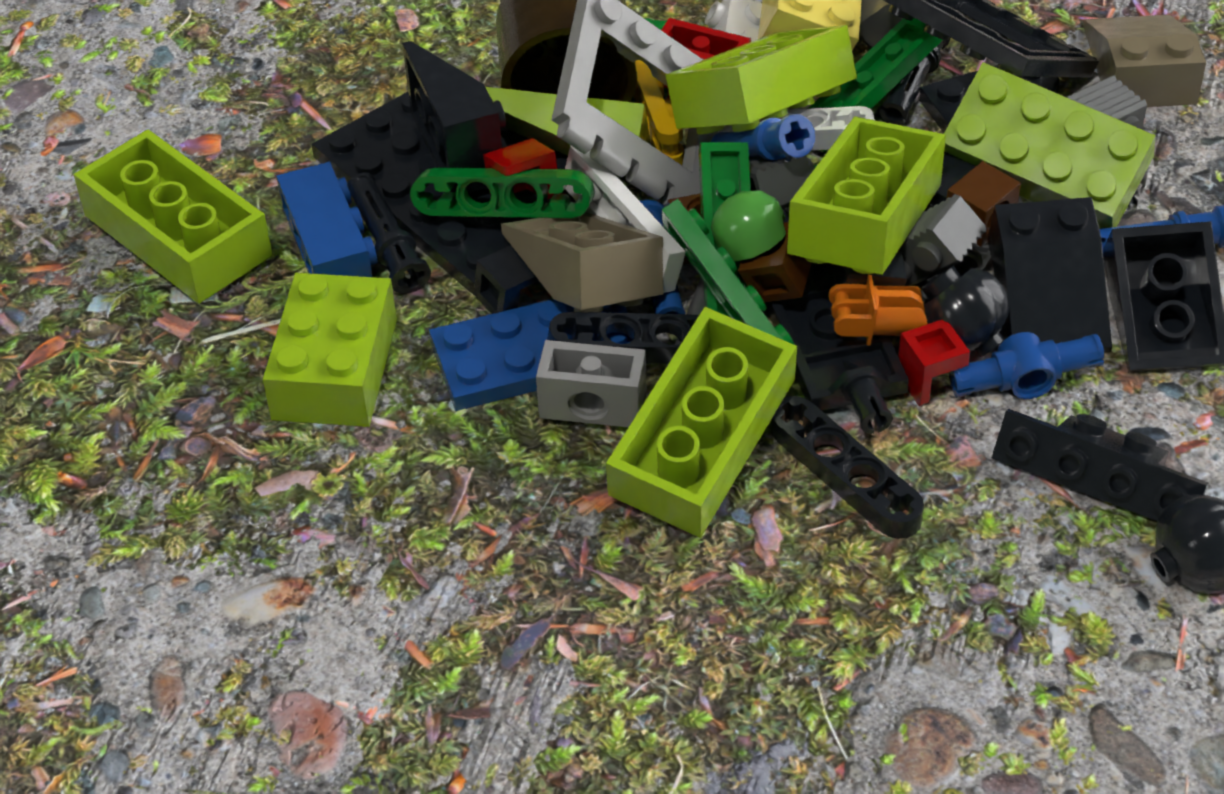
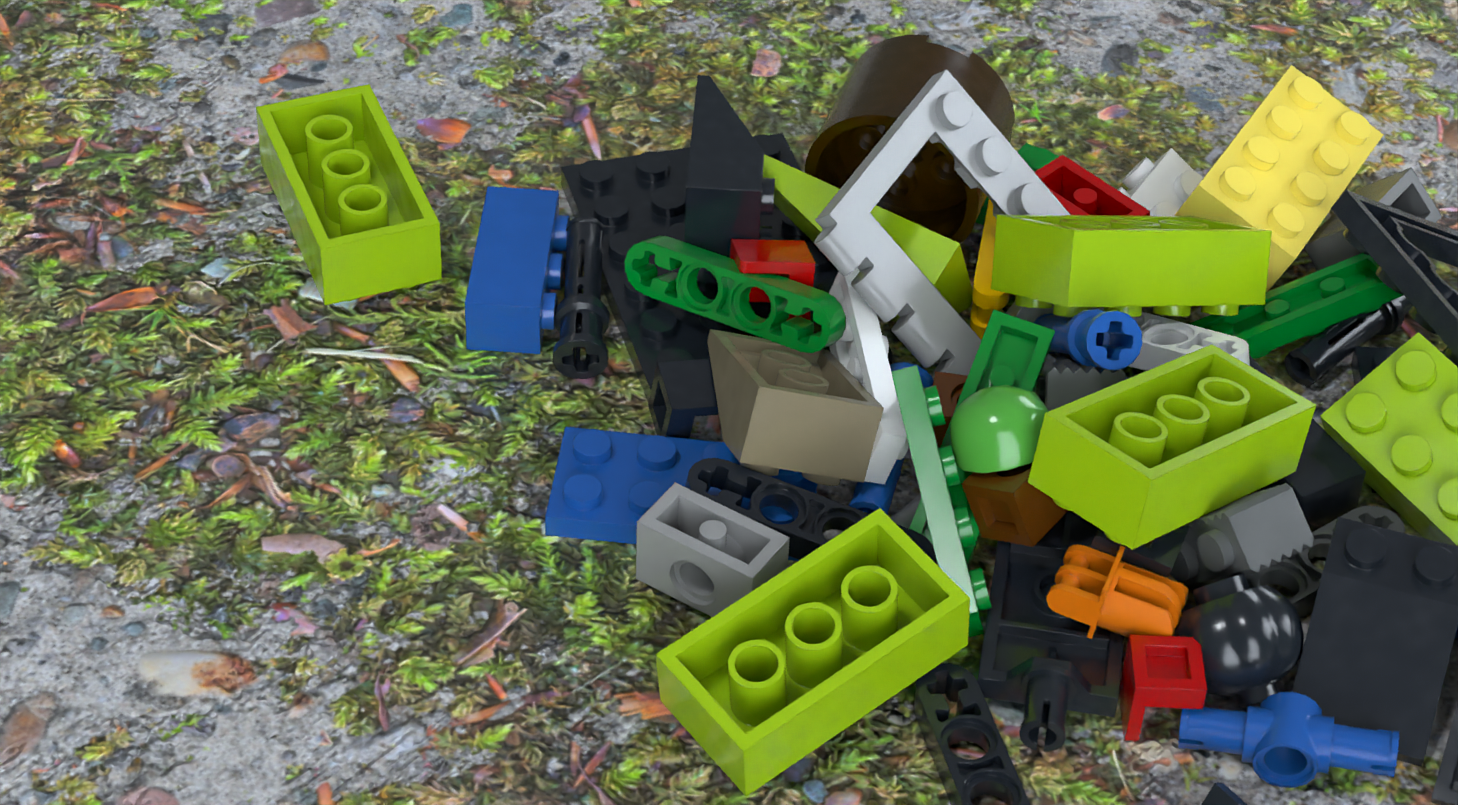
camera: 20 degrees right, 5 degrees down
(330, 350) = (433, 408): lime brick -> none
(983, 189) = (1343, 492): reddish brown brick -> none

